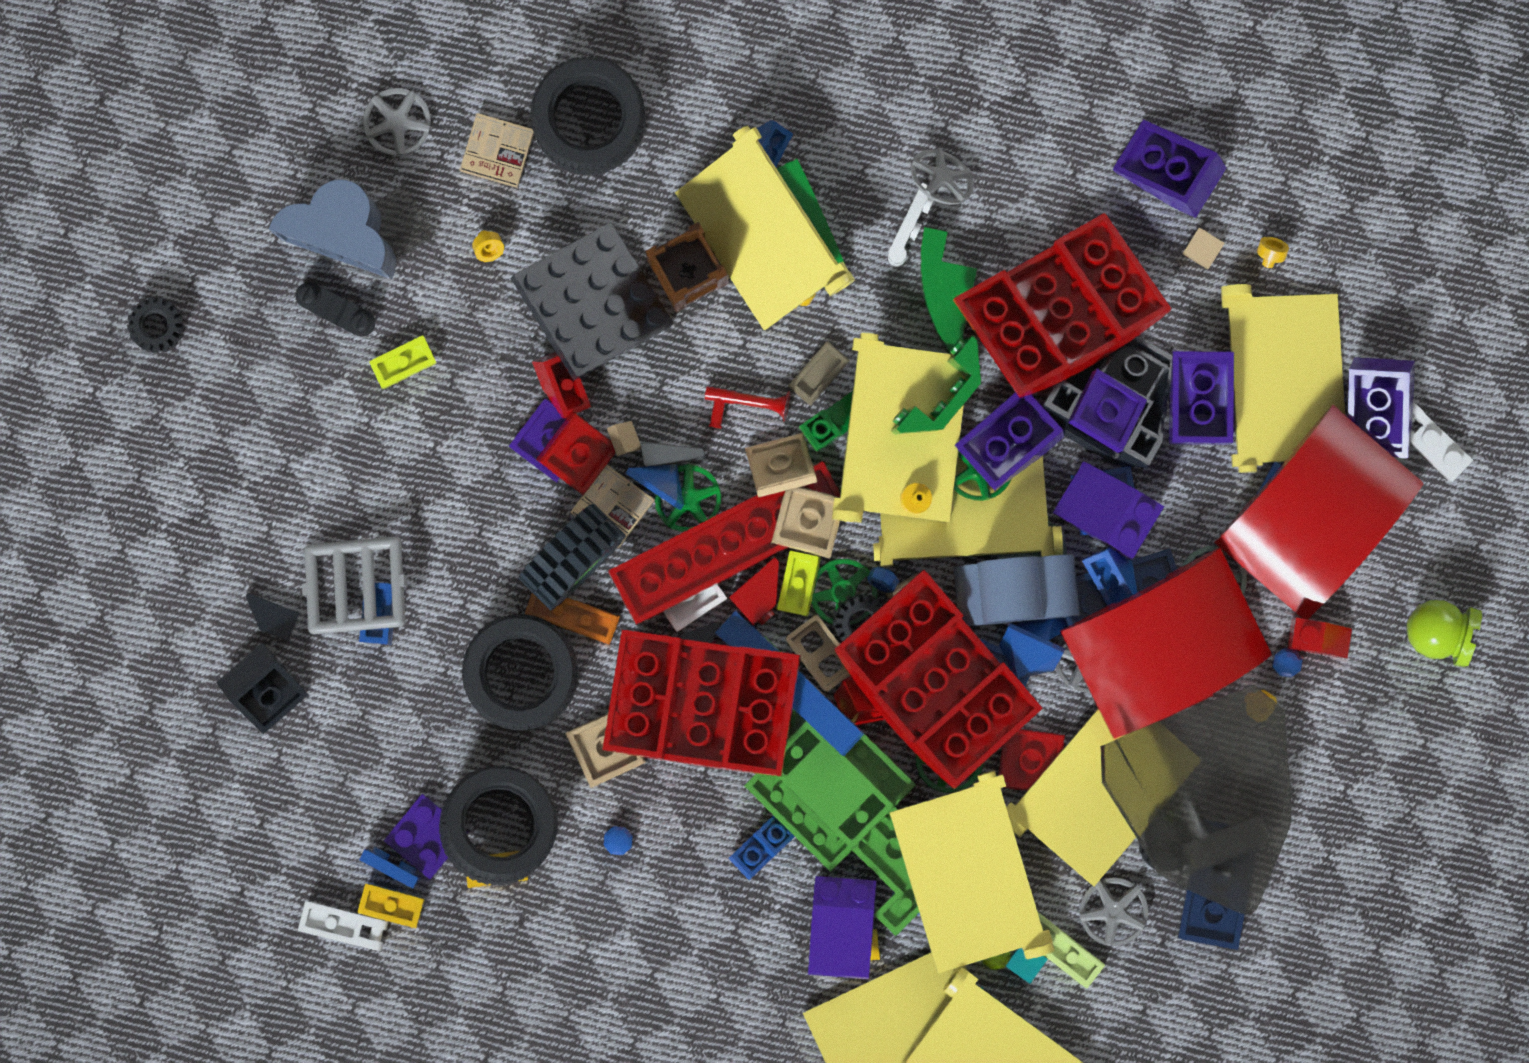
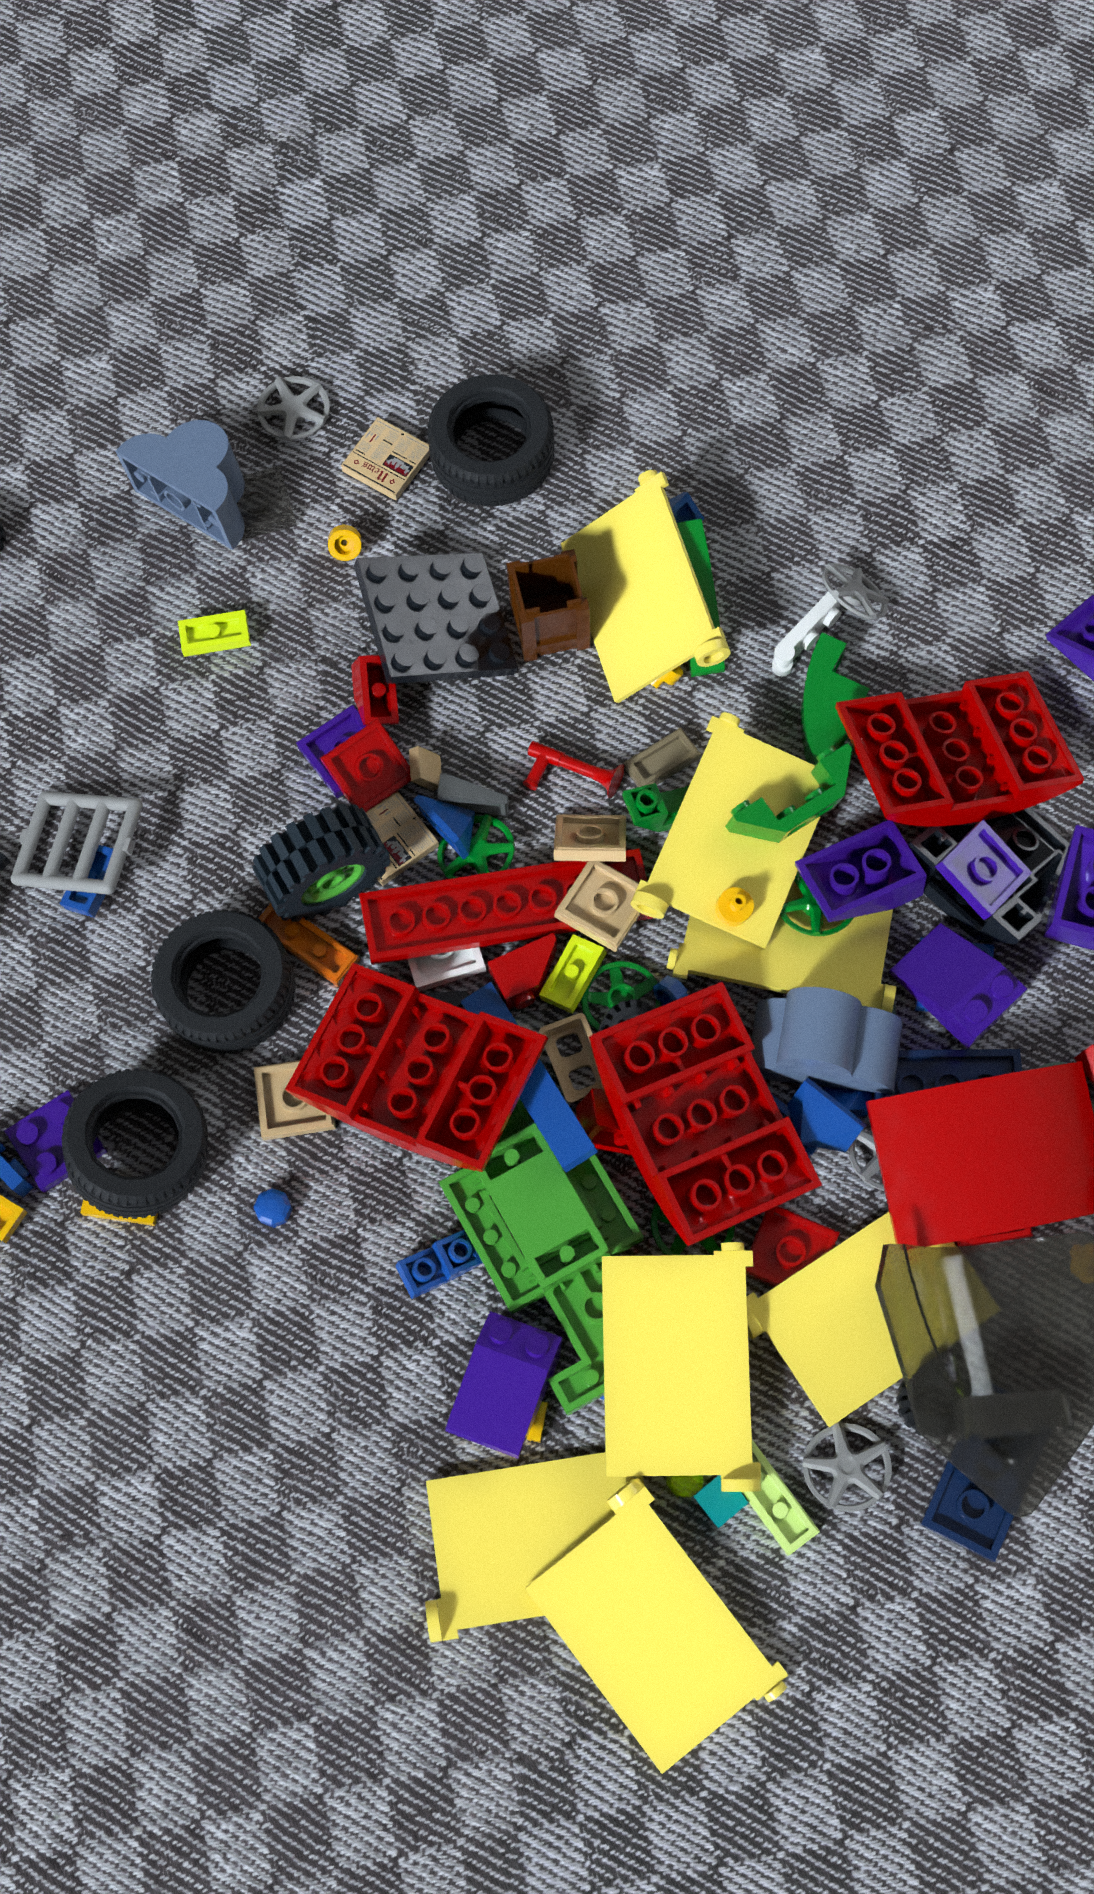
camera: 20 degrees right, 15 degrees down
(335, 309) = (162, 563): black piece -> none
(1112, 575) = (942, 1053): blue slope -> none

